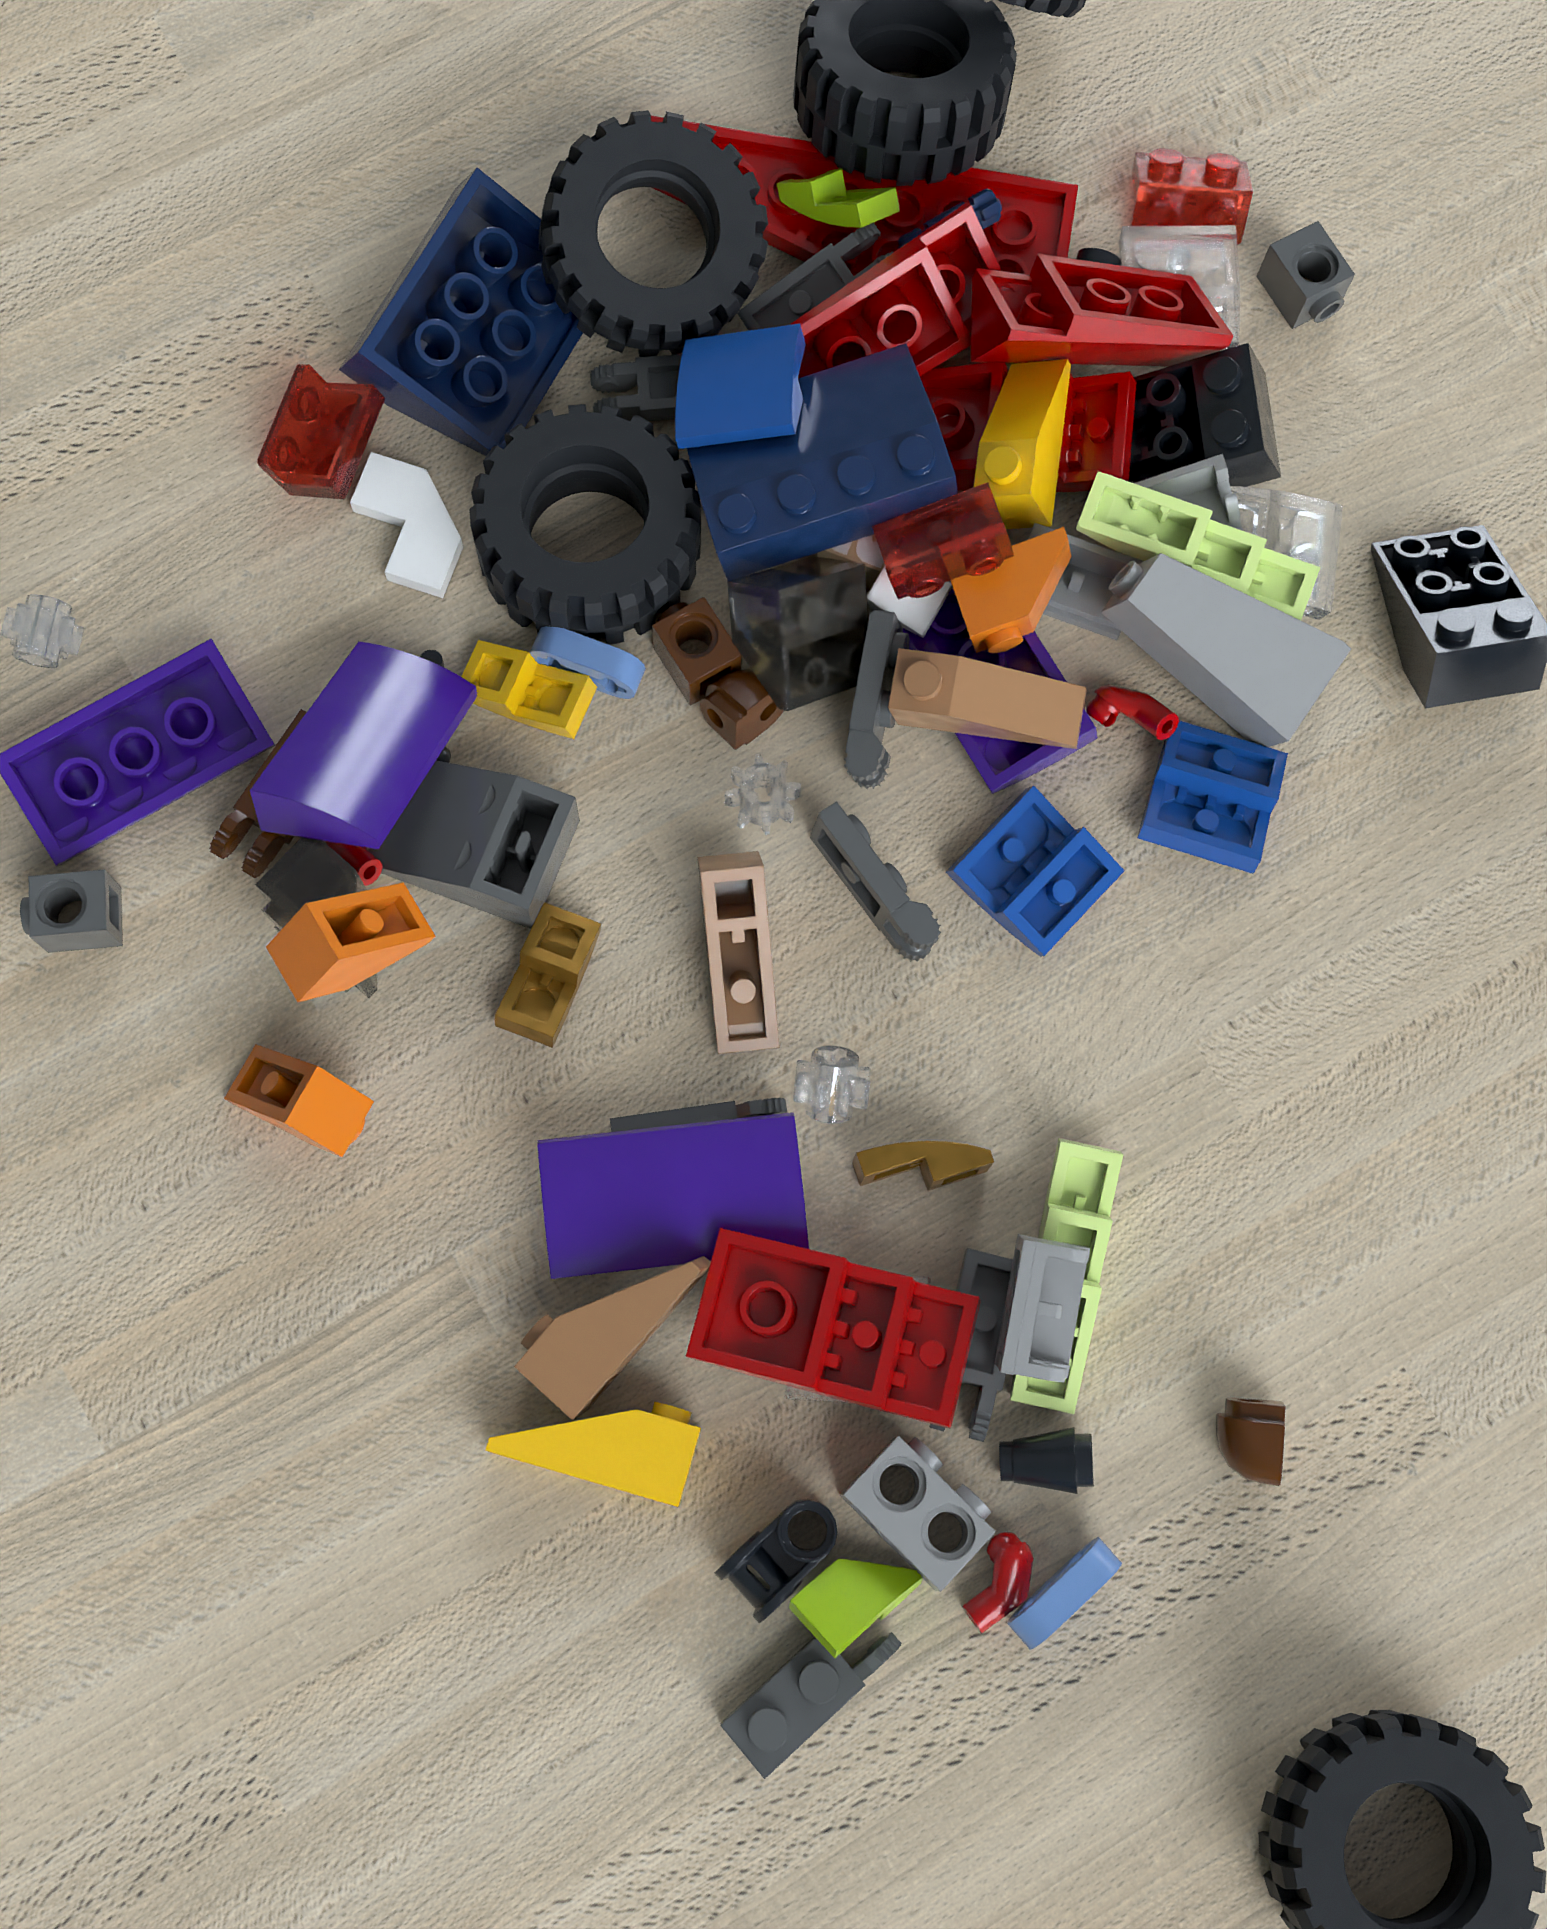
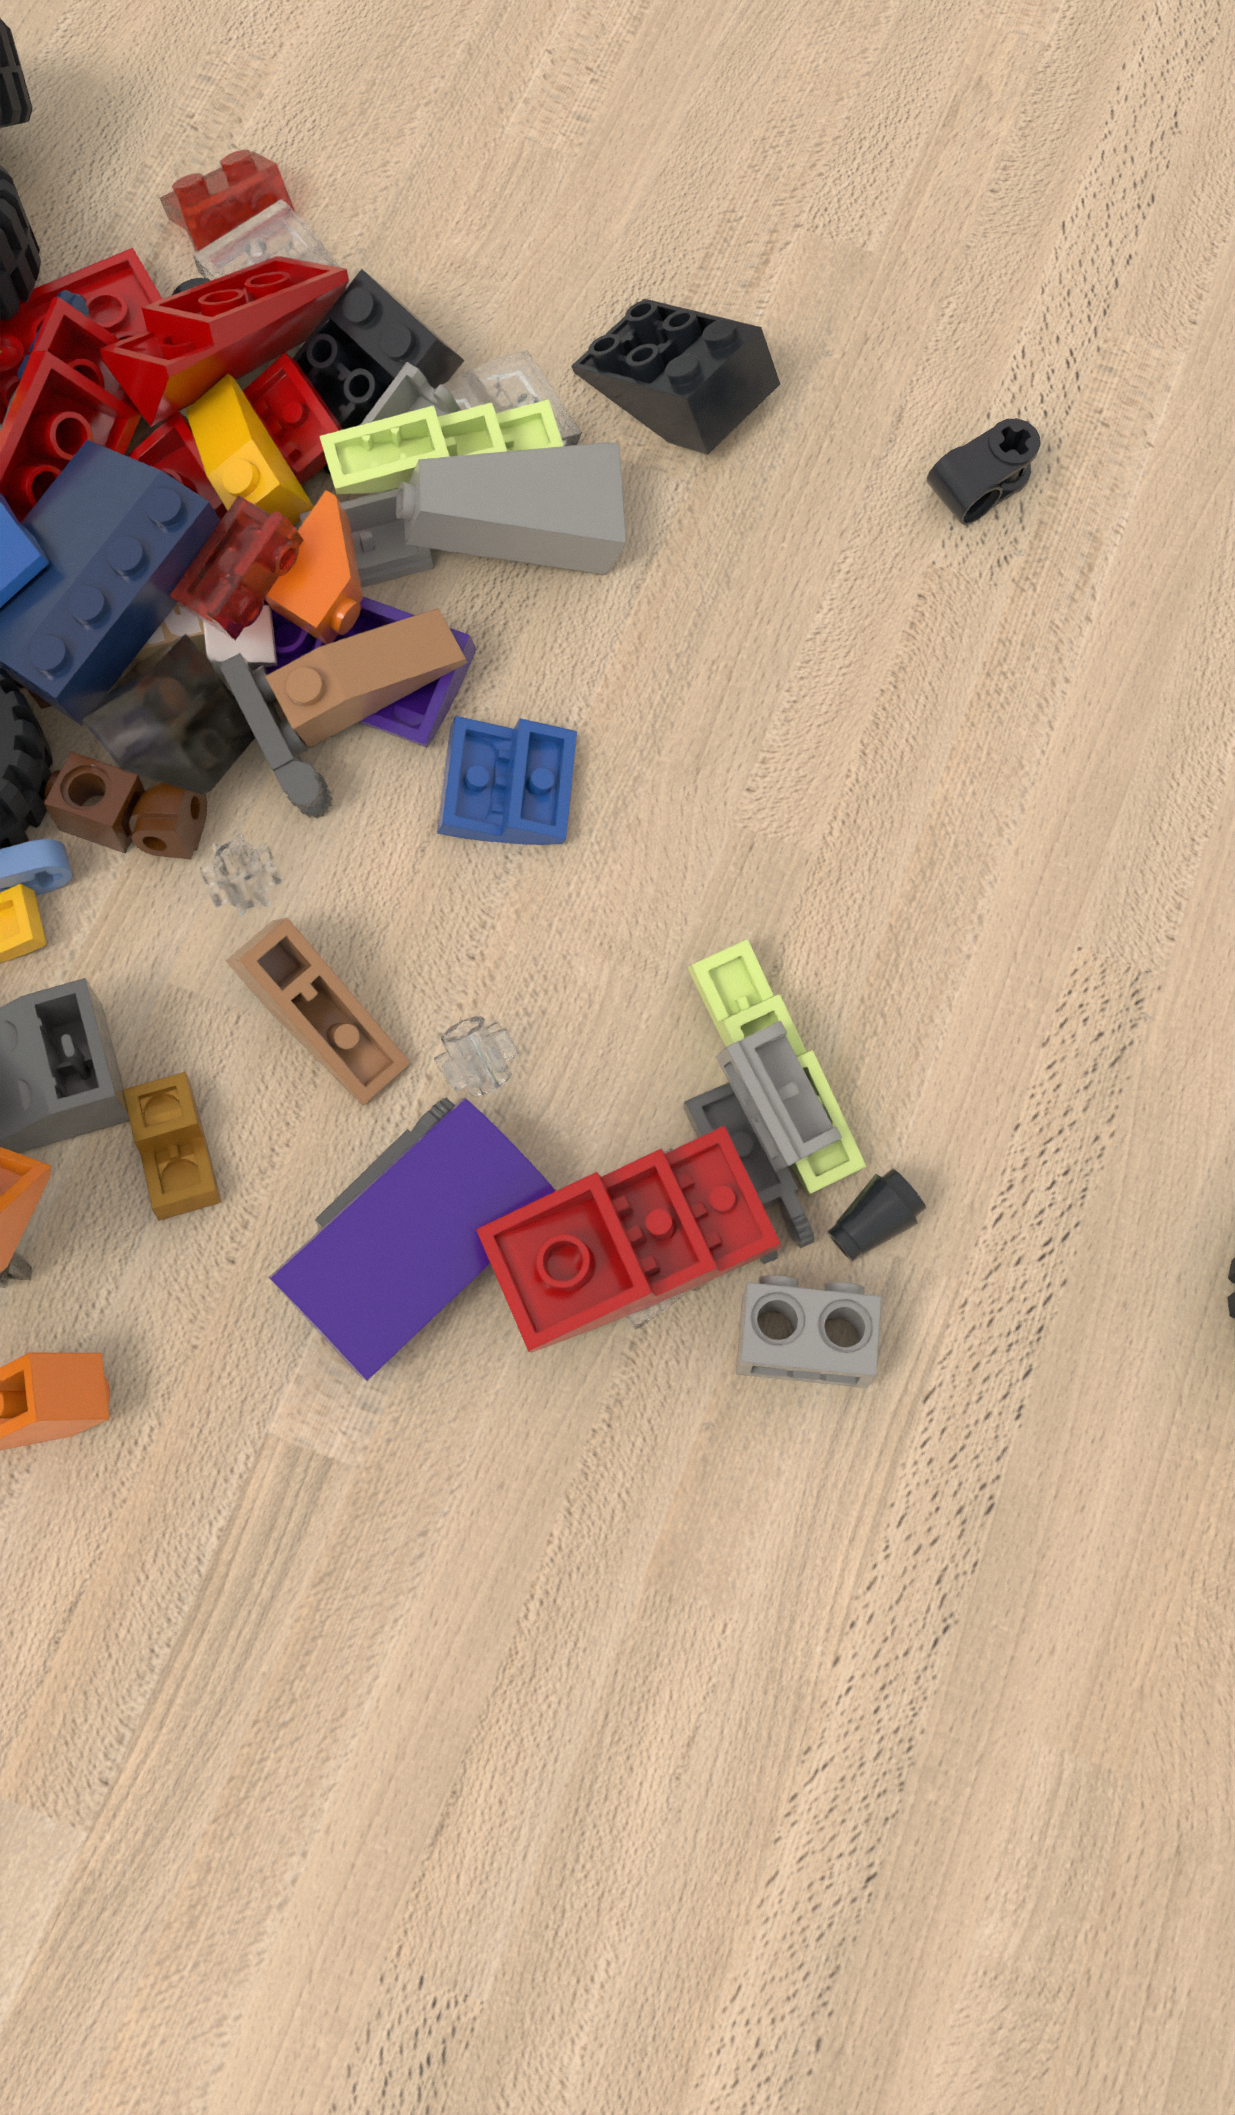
camera: 35 degrees left, 5 degrees down
(589, 1346) = (443, 1403): medium nougat slope -> none
(619, 1450) = (533, 1475): yellow slope -> none
(776, 1559) = (728, 1457): black piece -> none
(800, 1701) = (832, 1549): dark grey hinge -> none
(850, 1599) = (810, 1443): lime slope -> none
(874, 885) = (387, 879): dark grey hinge -> none
(938, 1161) = (606, 1053): pearl gold slope -> none
(1009, 1584) = (921, 1332): red arm -> none
(1064, 1593) = (969, 1306): medium blue beam -> none
(1135, 705) = (488, 602): red arm -> none
(1213, 796) = (599, 630): blue slope -> none
(1253, 1438) = (1016, 1078): reddish brown piece -> none
(1312, 256) = (365, 203): dark grey brick -> none

